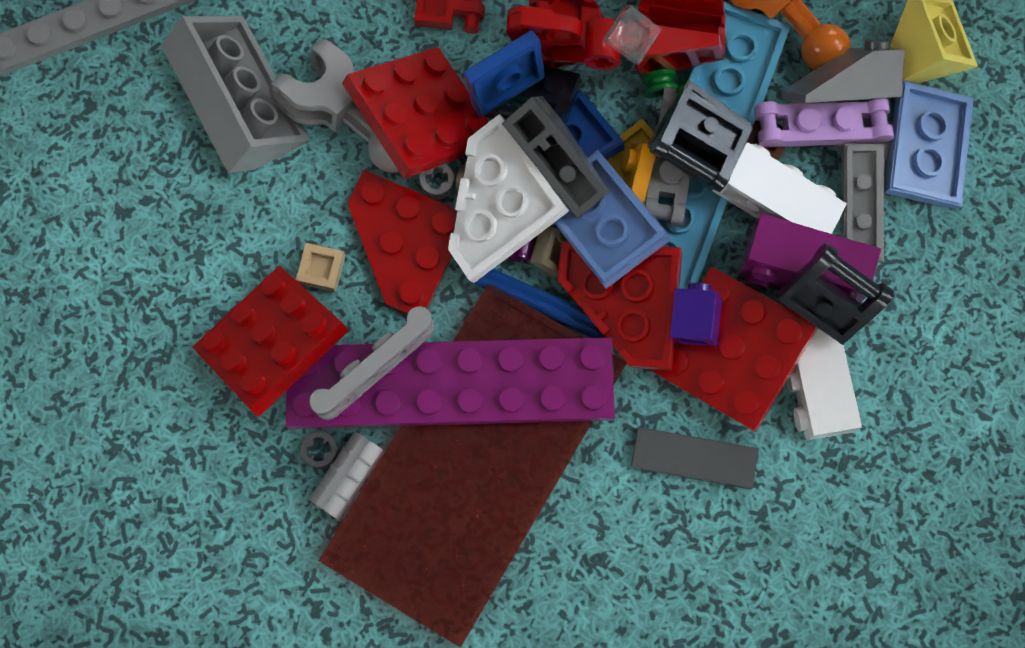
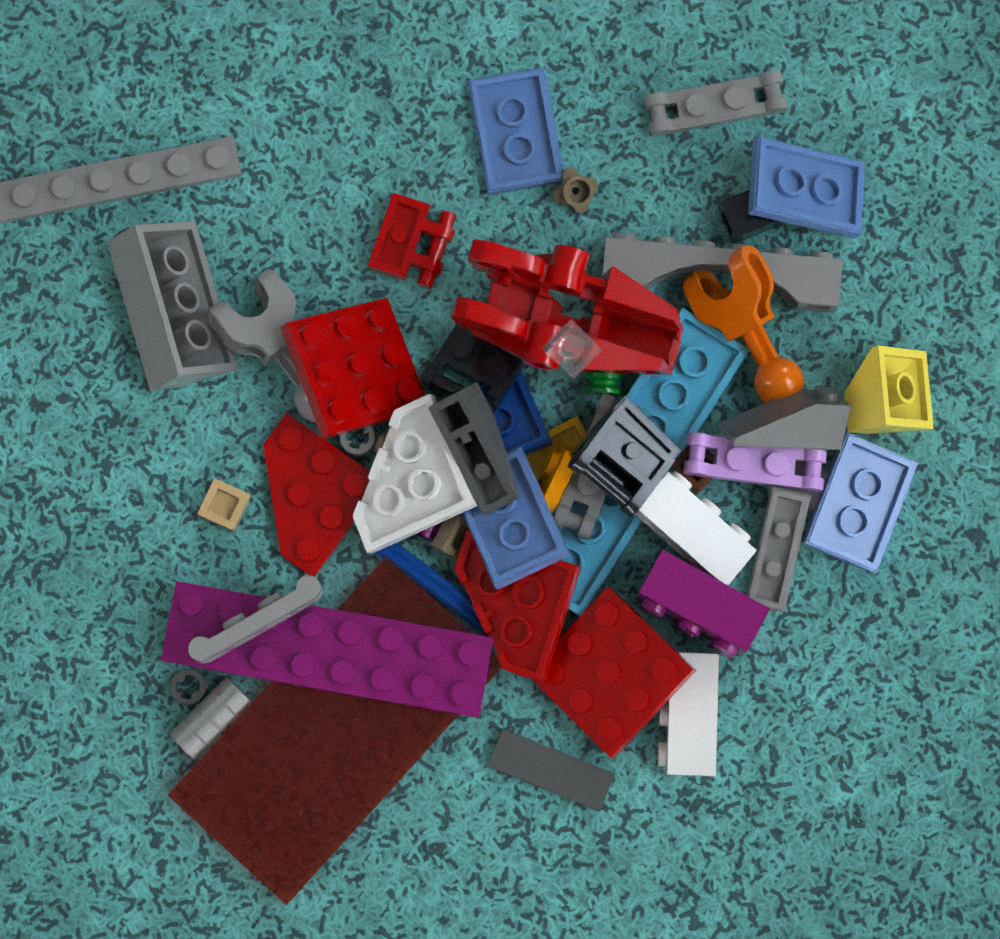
camera: 10 degrees right, 5 degrees up
(270, 340) = (160, 571): red plate -> none
(505, 73) = (443, 354): blue tile -> none
(696, 315) = (578, 635): dark purple brick -> none
(828, 305) = (704, 653): black plate -> none

